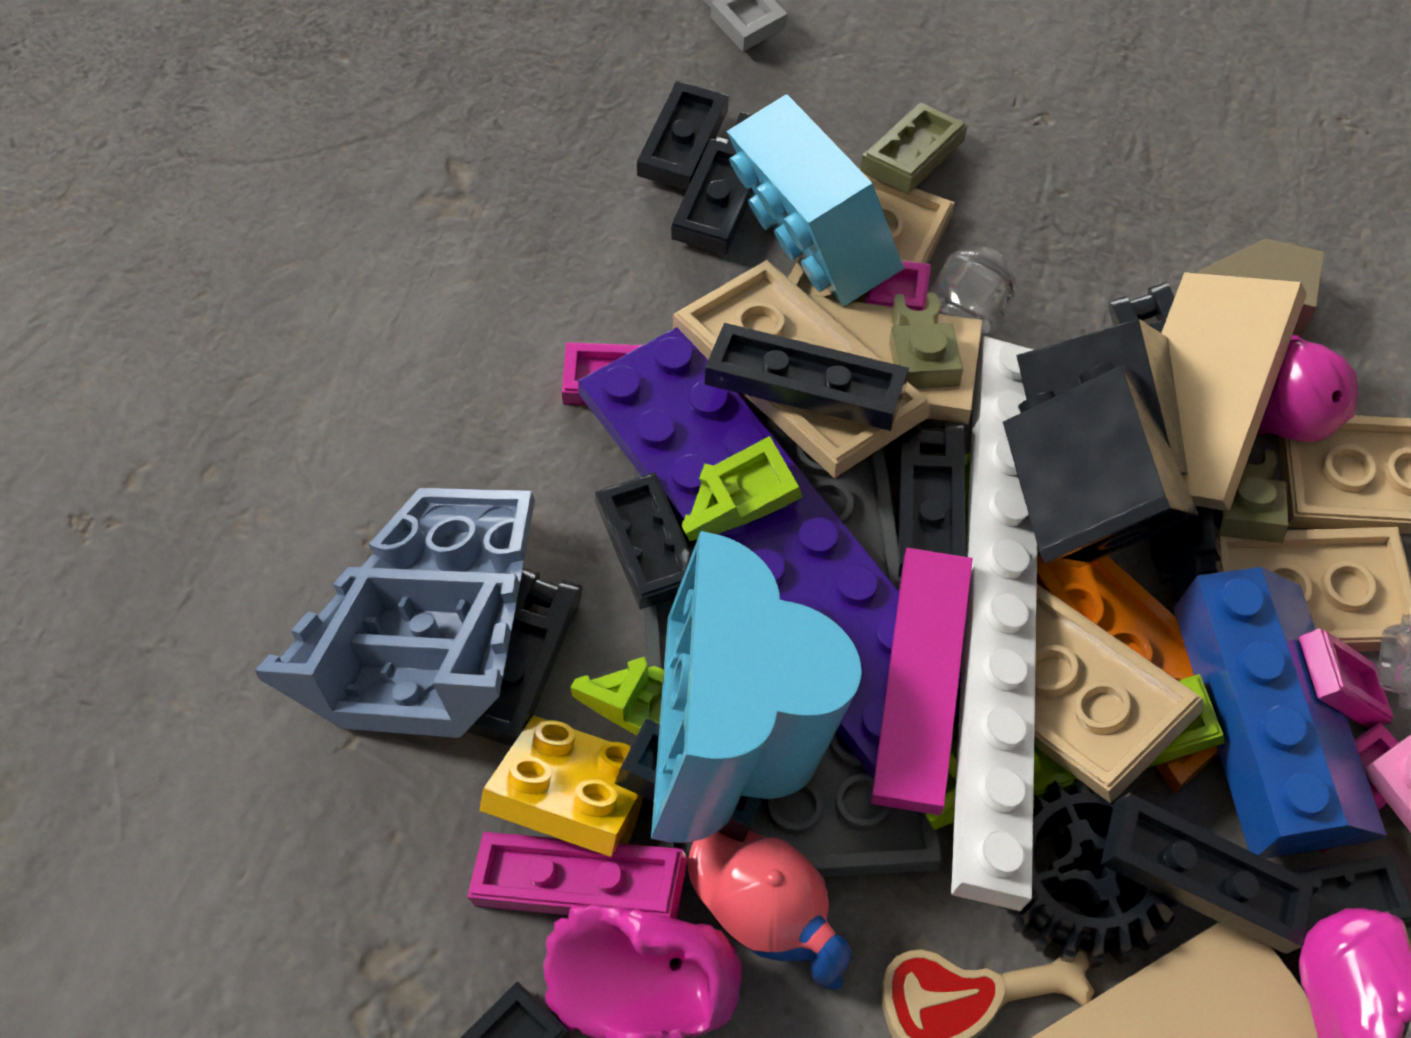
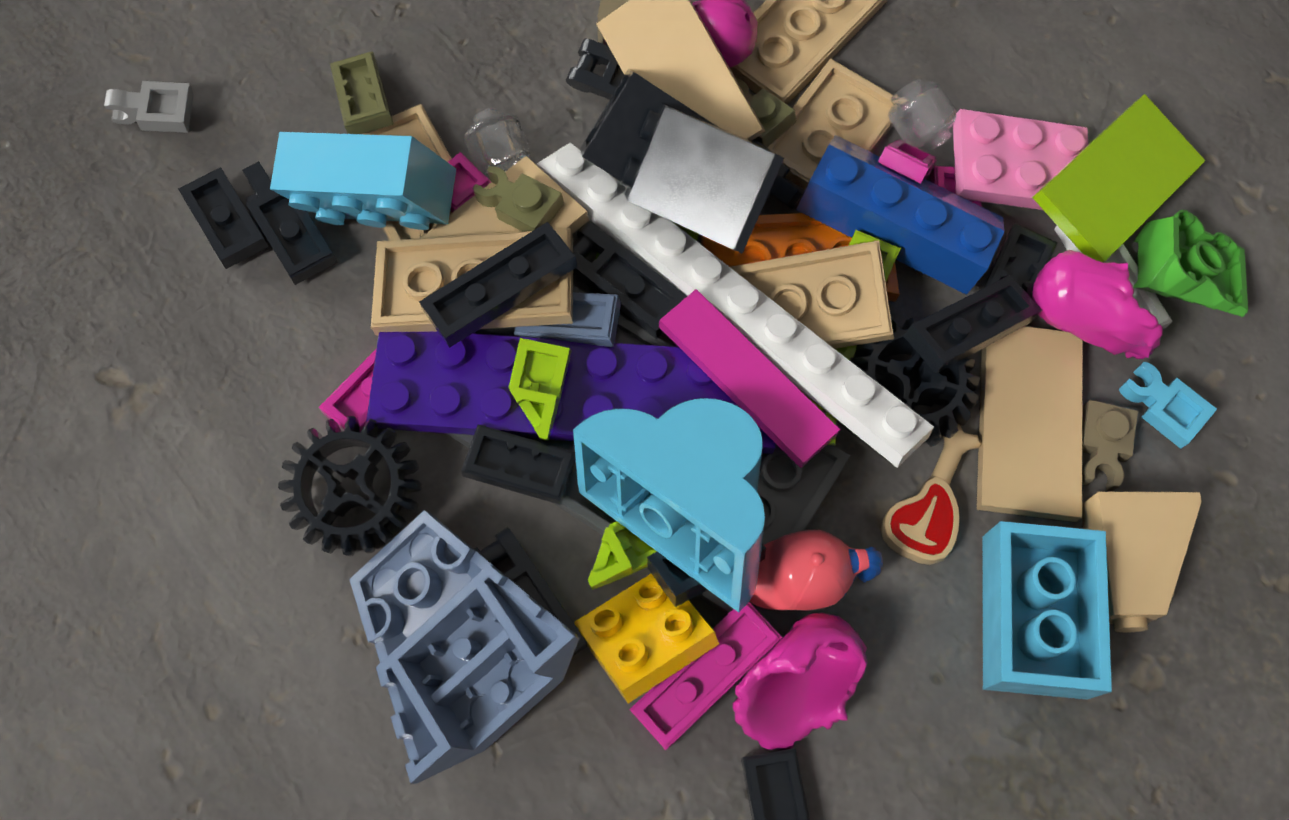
camera: 55 degrees left, 10 degrees up
(477, 405) = (336, 500): none -> black gear
(854, 497) = (593, 322): none -> sand blue tile

